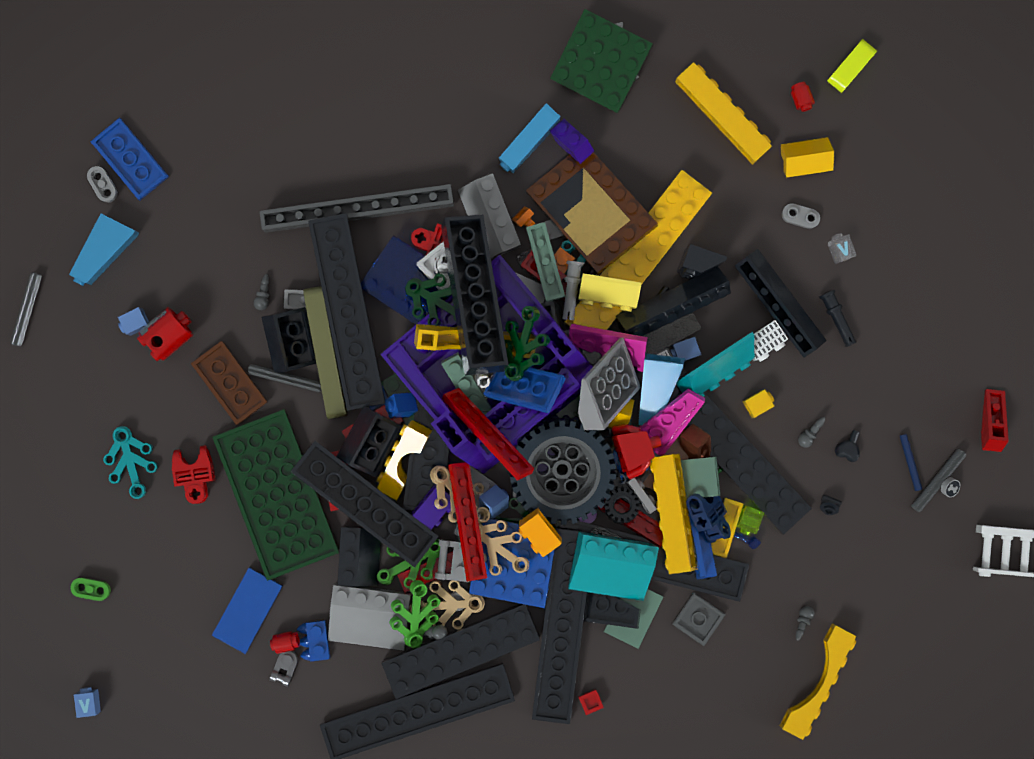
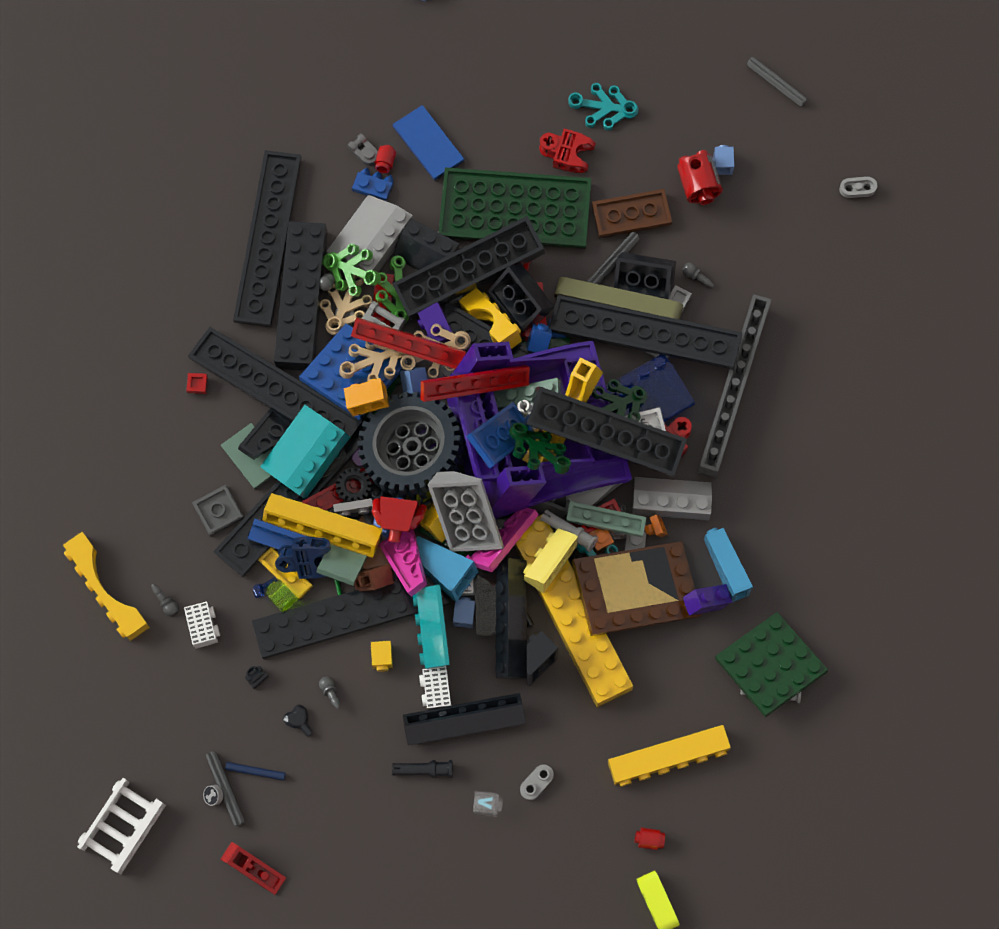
camera: 115 degrees right, 15 degrees down
(91, 589) = (510, 30): bright green plate -> none
(101, 249) = (801, 162): dark azure slope -> none
(129, 159) = (870, 220): blue tile -> none
(807, 157) = (589, 814): yellow piece -> none
(809, 576) = (201, 624): none -> white brick

